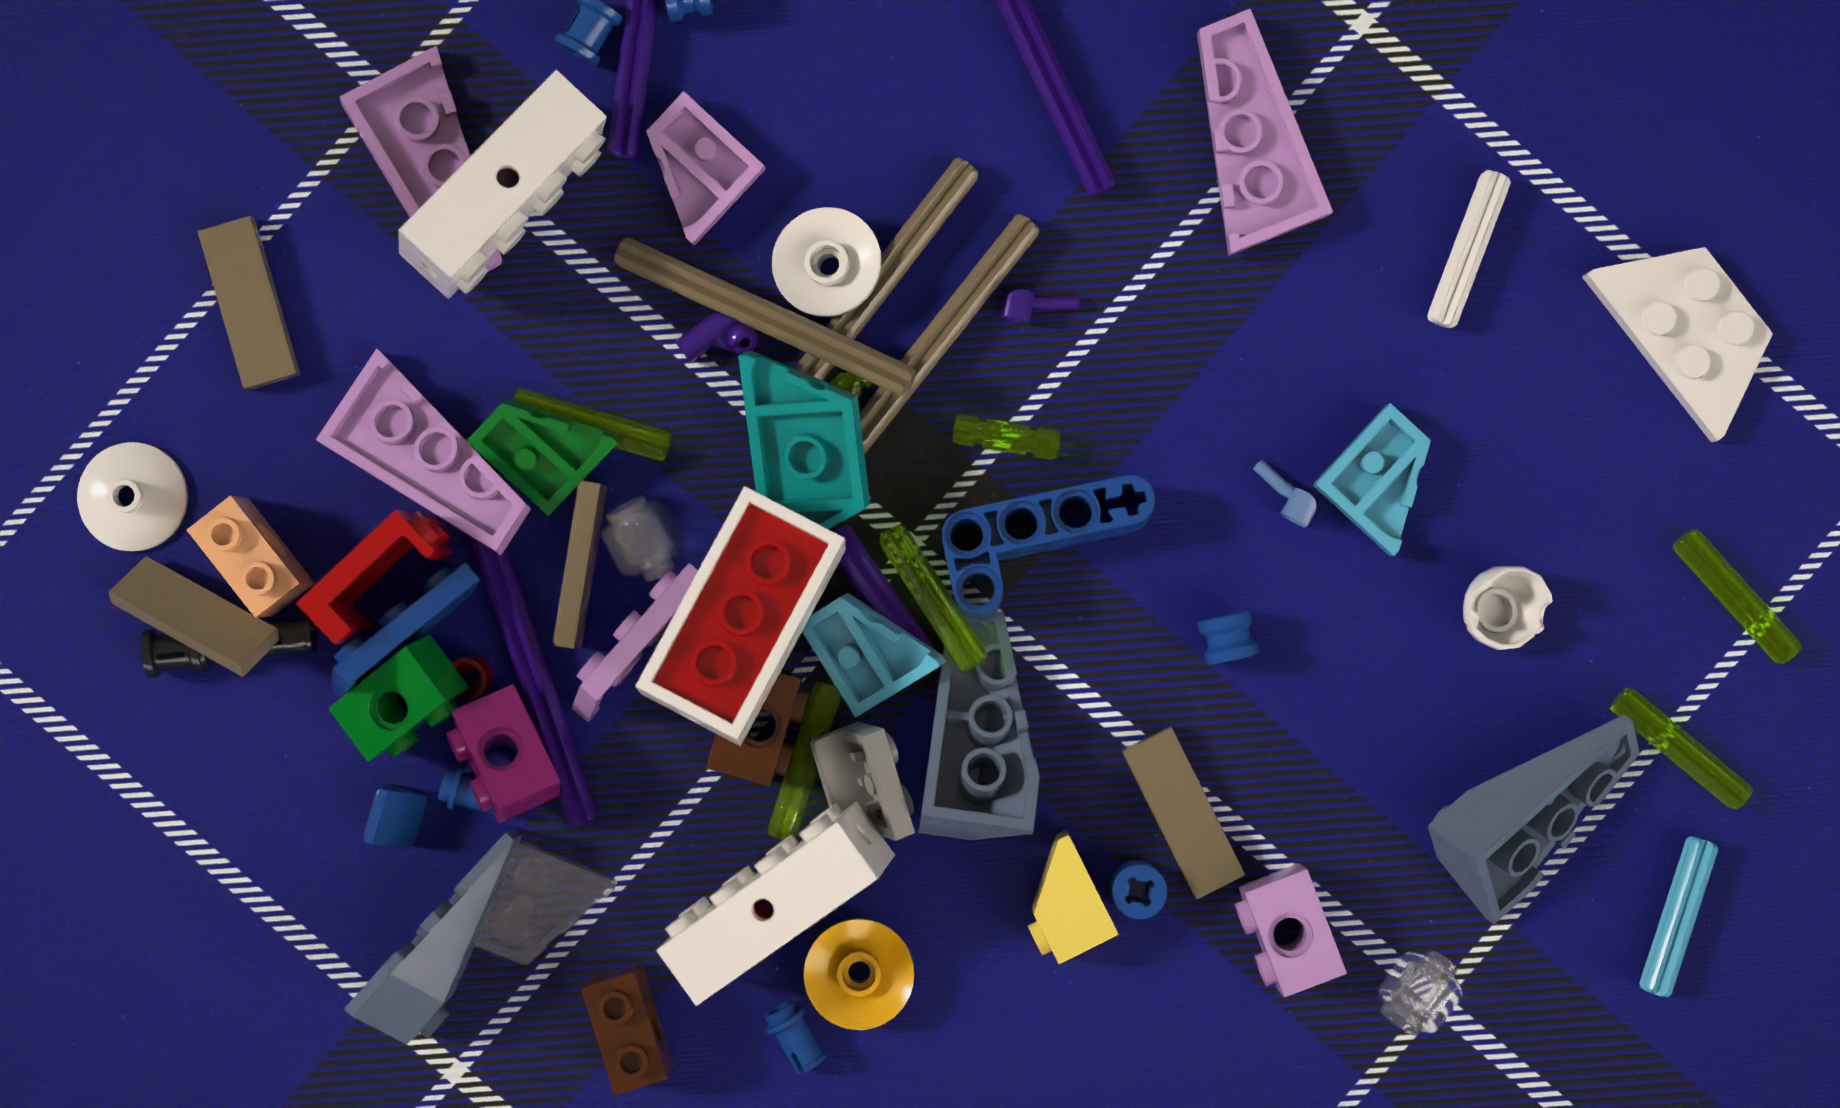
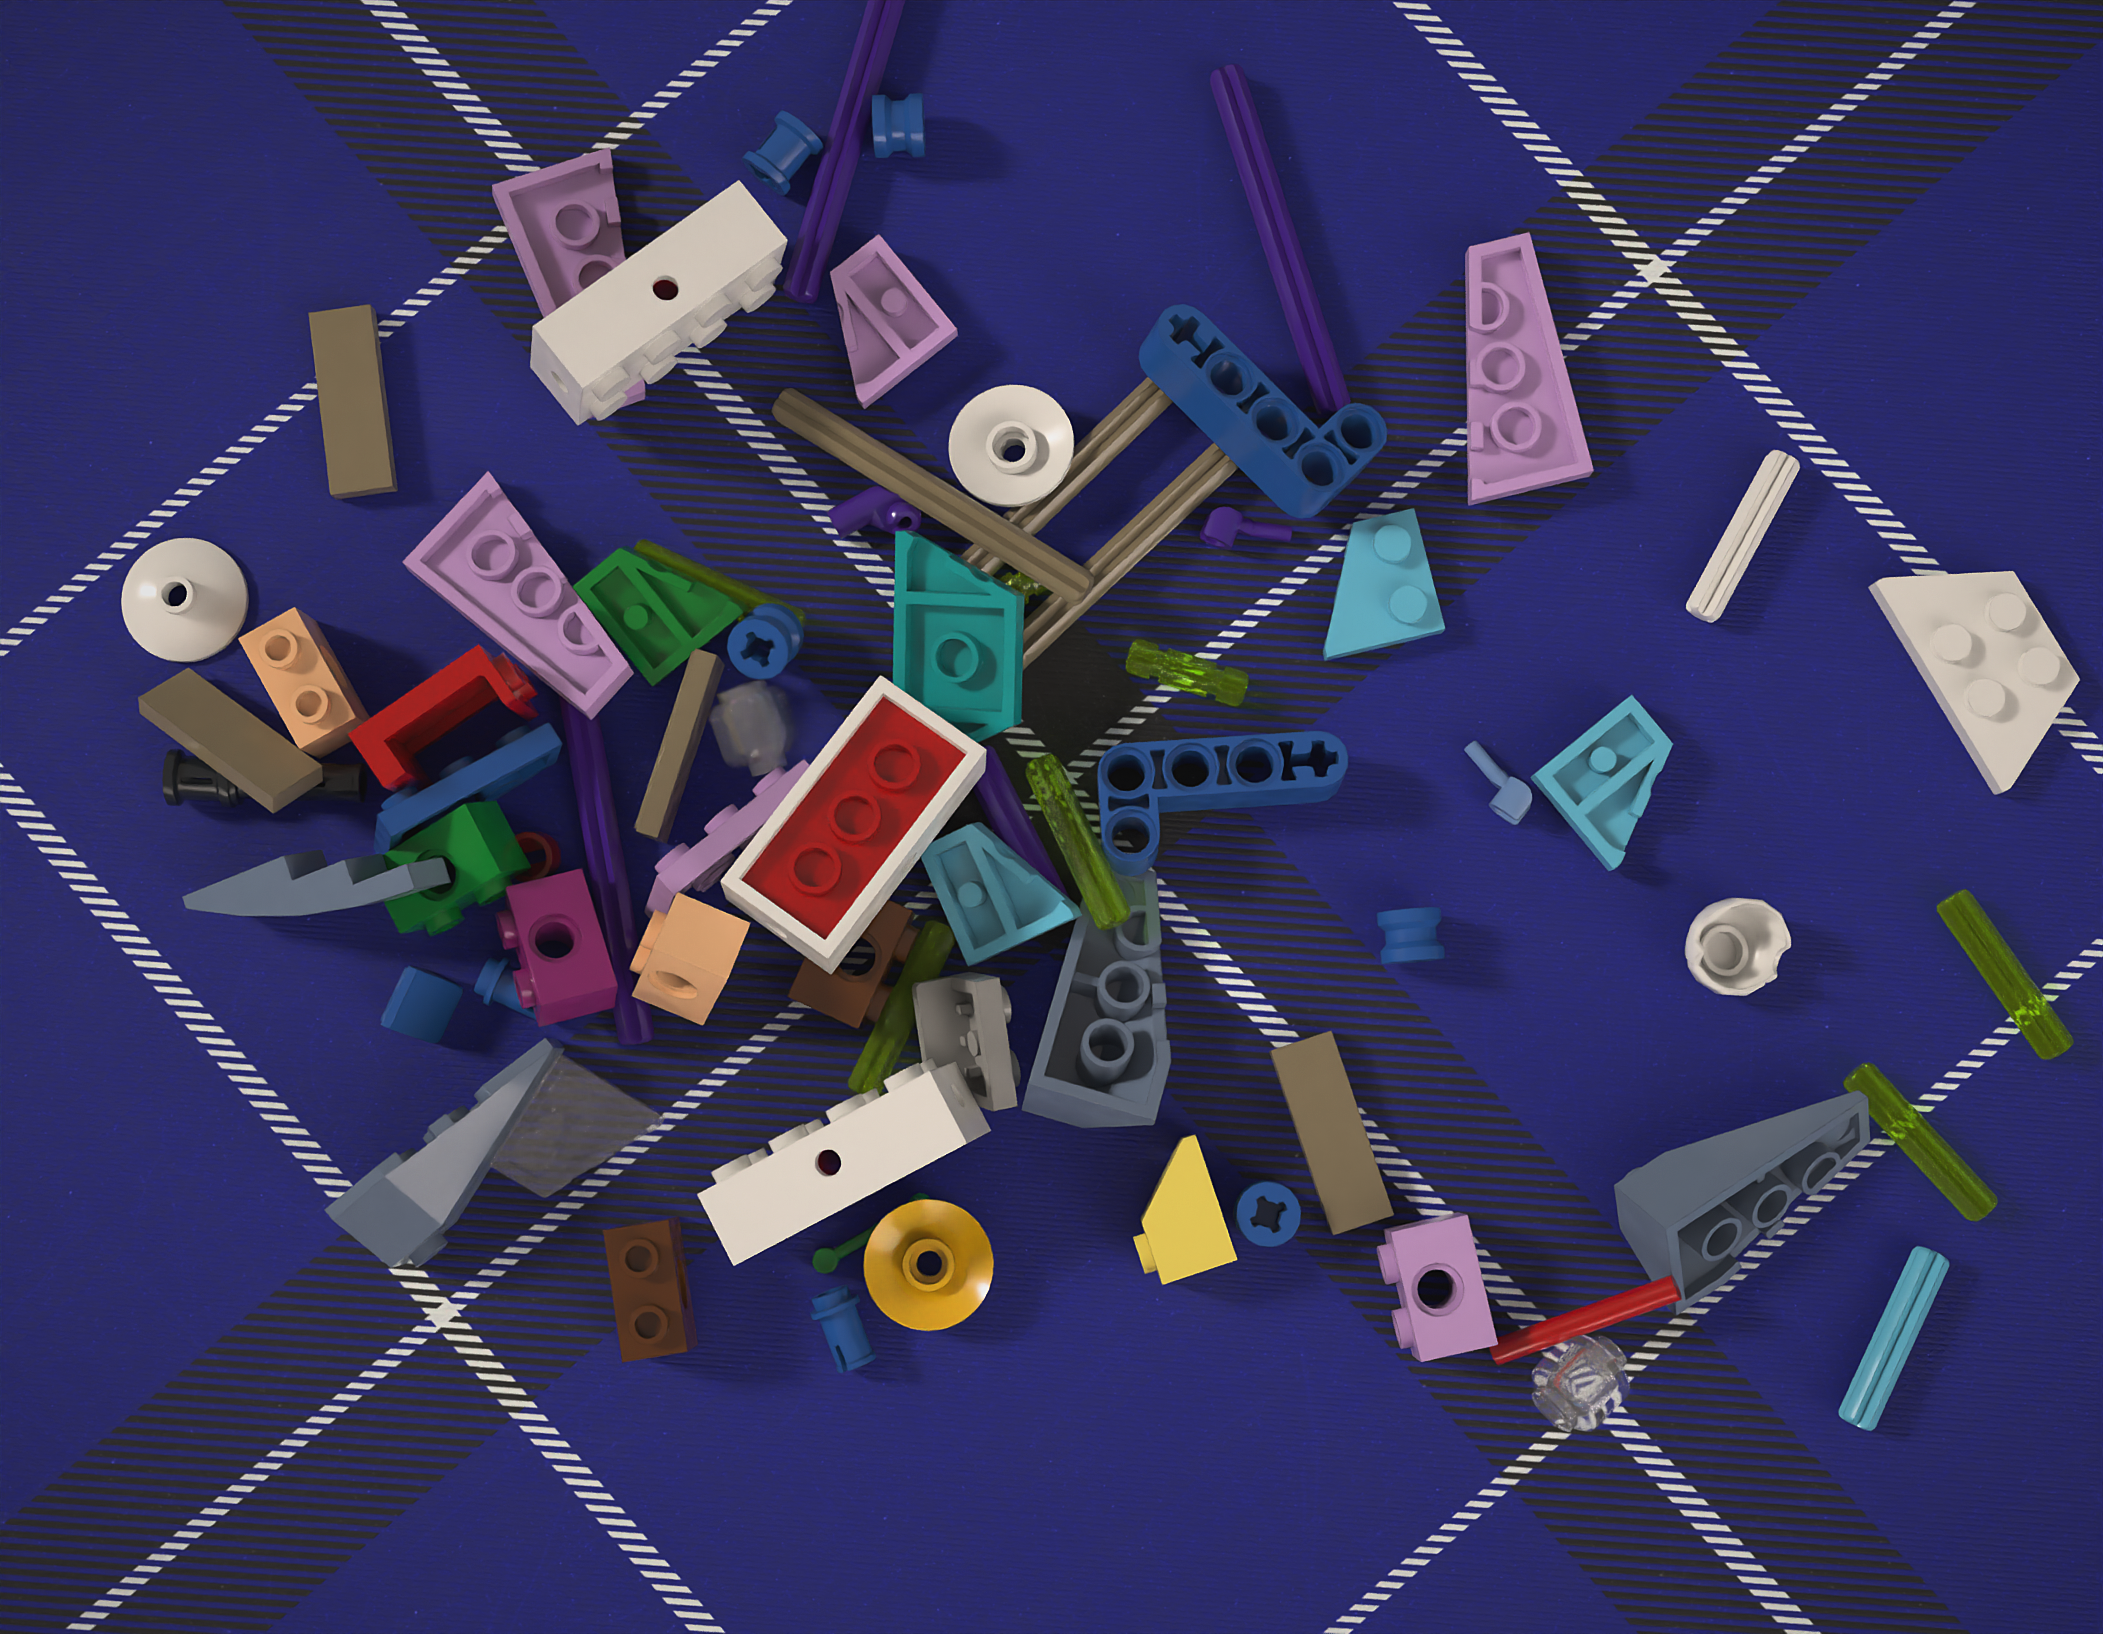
camera: 10 degrees right, 5 degrees down
(282, 736) = (307, 885): none -> sand blue slope
(616, 748) = (687, 957): none -> light nougat brick
(641, 450) = (768, 626): none -> blue wheel
(772, 979) = (827, 1258): none -> green hinge
(1036, 197) = (1191, 355): none -> blue beam
(1164, 338) = (1383, 588): none -> medium azure wing
(1418, 940) = (1586, 1319): none -> red bar

